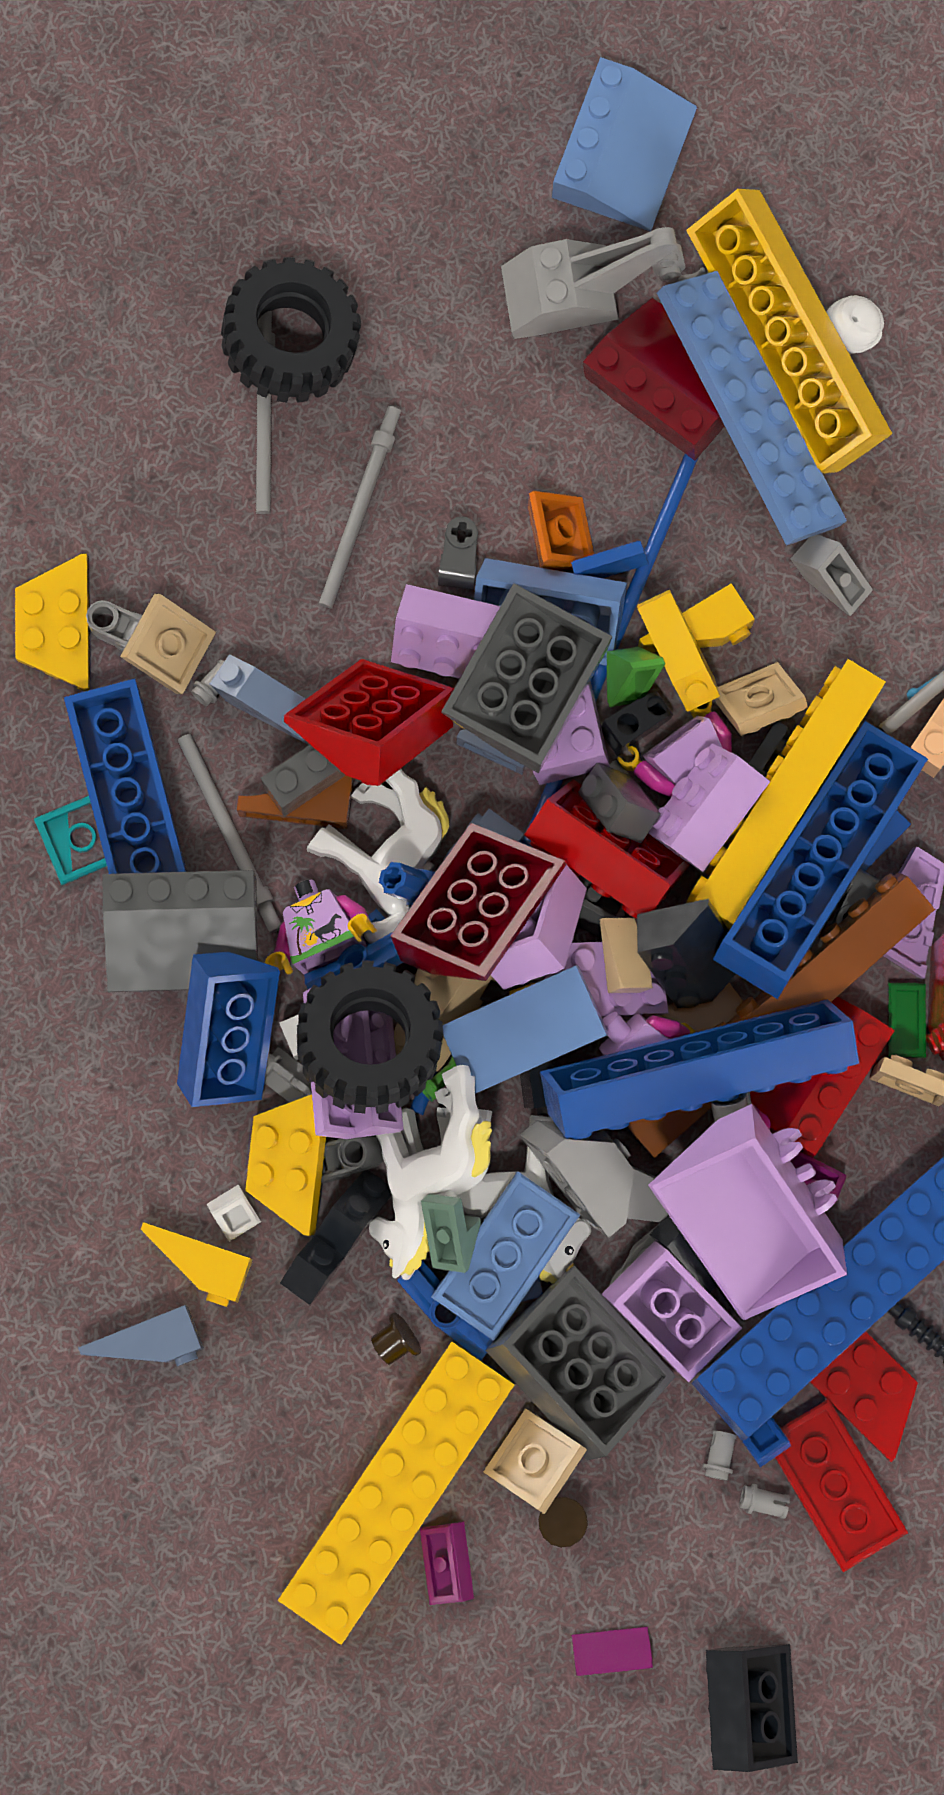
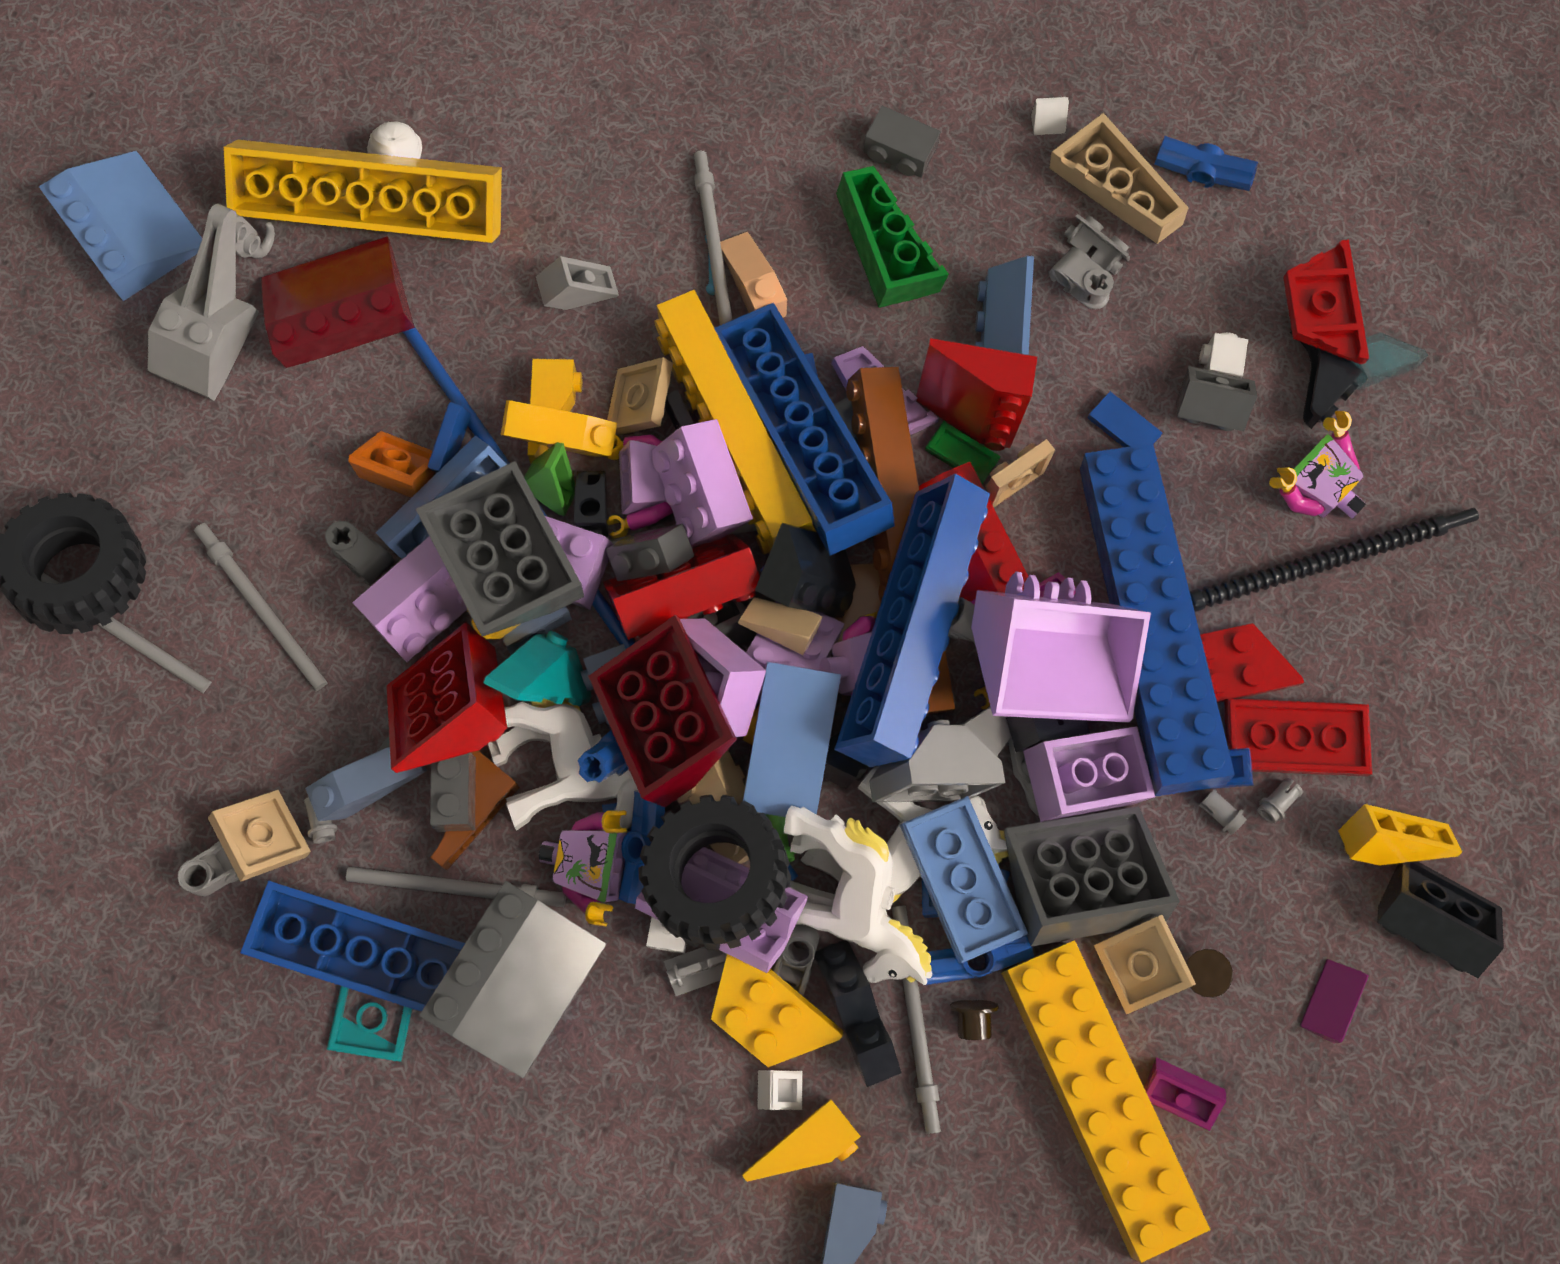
camera: 60 degrees left, 5 degrees down
(54, 624) = (171, 923): yellow wing -> none
(227, 1029) = (624, 993): blue slope -> none
(308, 1339) = (926, 1093): none -> light grey bar
(449, 1232) = (919, 912): sand green slope -> none
(452, 781) = (540, 670): none -> teal wedge
(751, 407) = (402, 253): medium blue plate -> none
(797, 1627) = (1395, 837): none -> yellow slope

